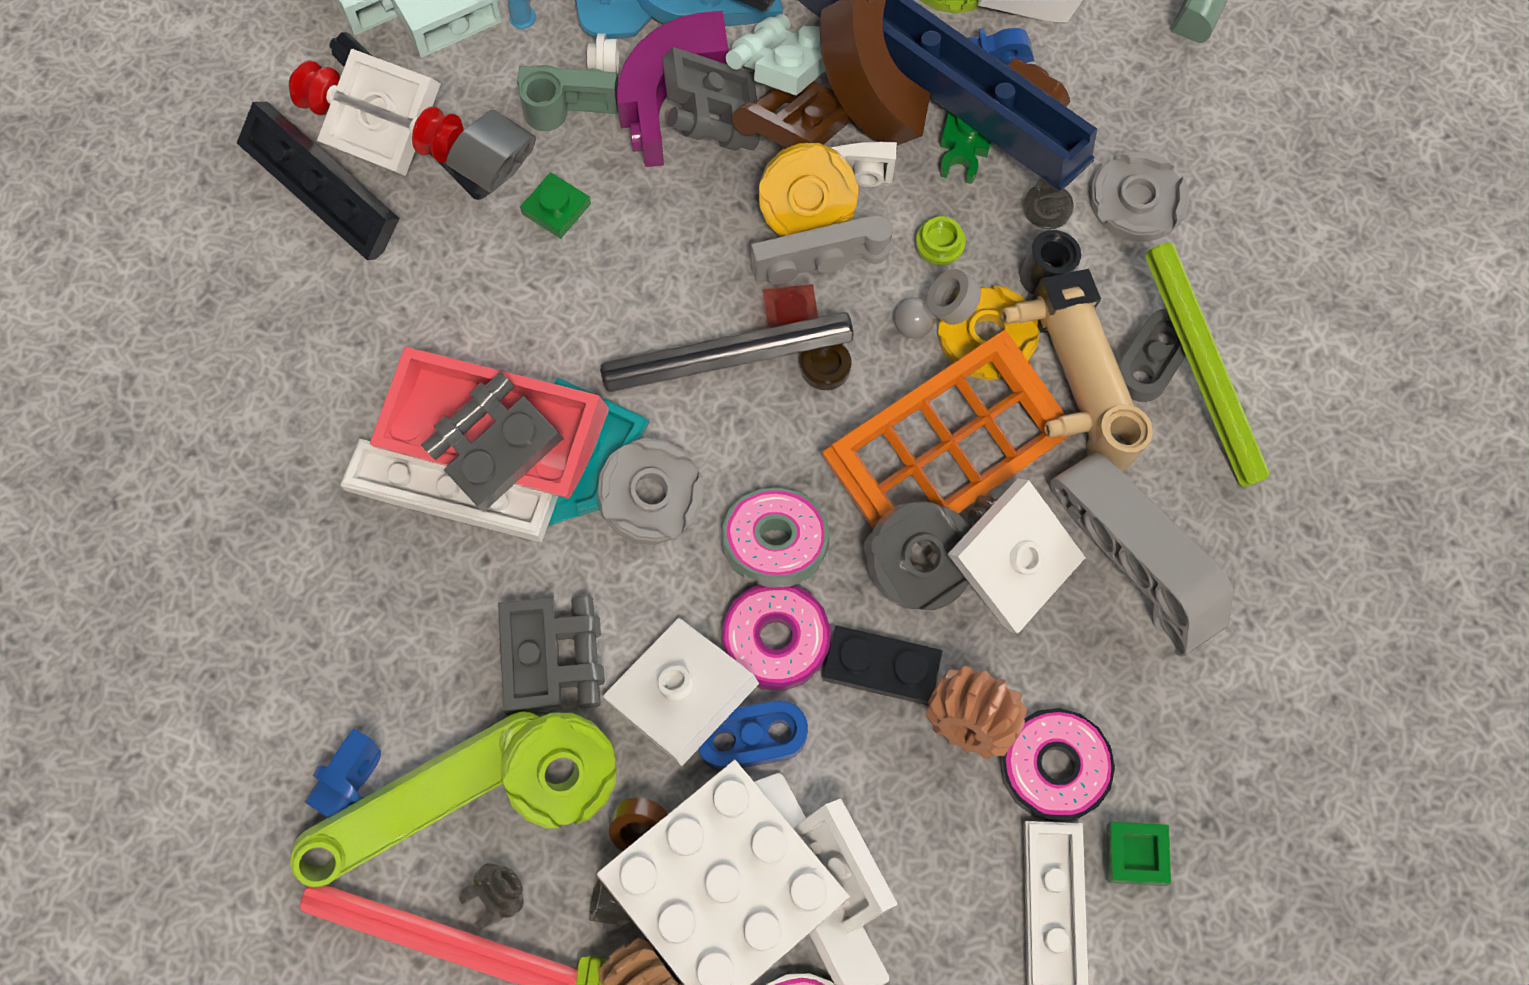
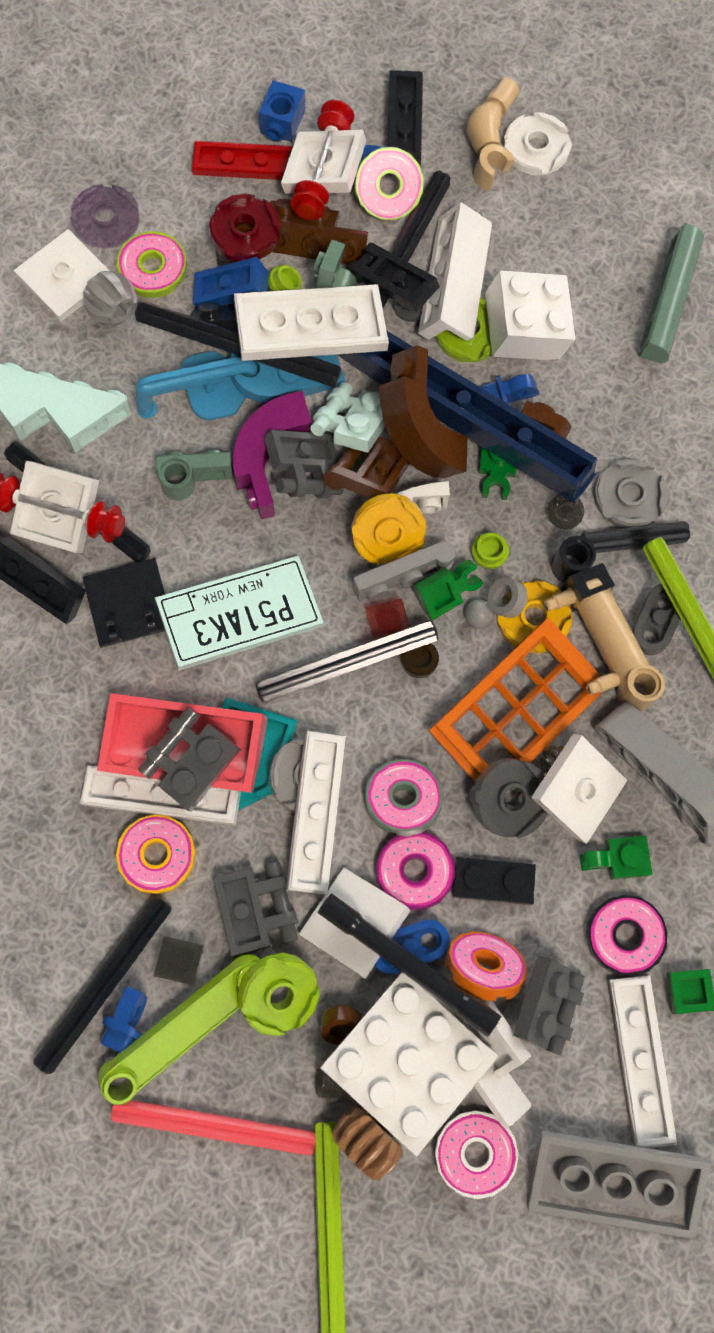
camera: 10 degrees left, 5 degrees up
(322, 728) = (102, 986): none -> black axle
(431, 596) = (132, 850): none -> tile
(433, 708) = (179, 961): none -> clear smoke plate
(452, 244) = (125, 602): none -> black plate
(490, 150) = (145, 527): dark grey beam -> none
(498, 890) = (250, 1086): clear smoke plate -> none
(555, 205) = (199, 560): green plate -> none
(594, 274) = (238, 612): none -> light aqua tile
(603, 54) = (216, 436): white plate -> none
(651, 539) = (315, 813): none -> white tile
(812, 816) = (464, 1004): none -> black piece
(836, 751) = (486, 984): none -> tile
(868, 279) = (442, 589): none -> green plate
(921, 838) = (549, 1005): none -> dark grey plate
(976, 712) = (566, 909): nougat gear -> none
(1066, 657) = (623, 856): none -> green plate
(1132, 248) = (638, 536): none -> black axle

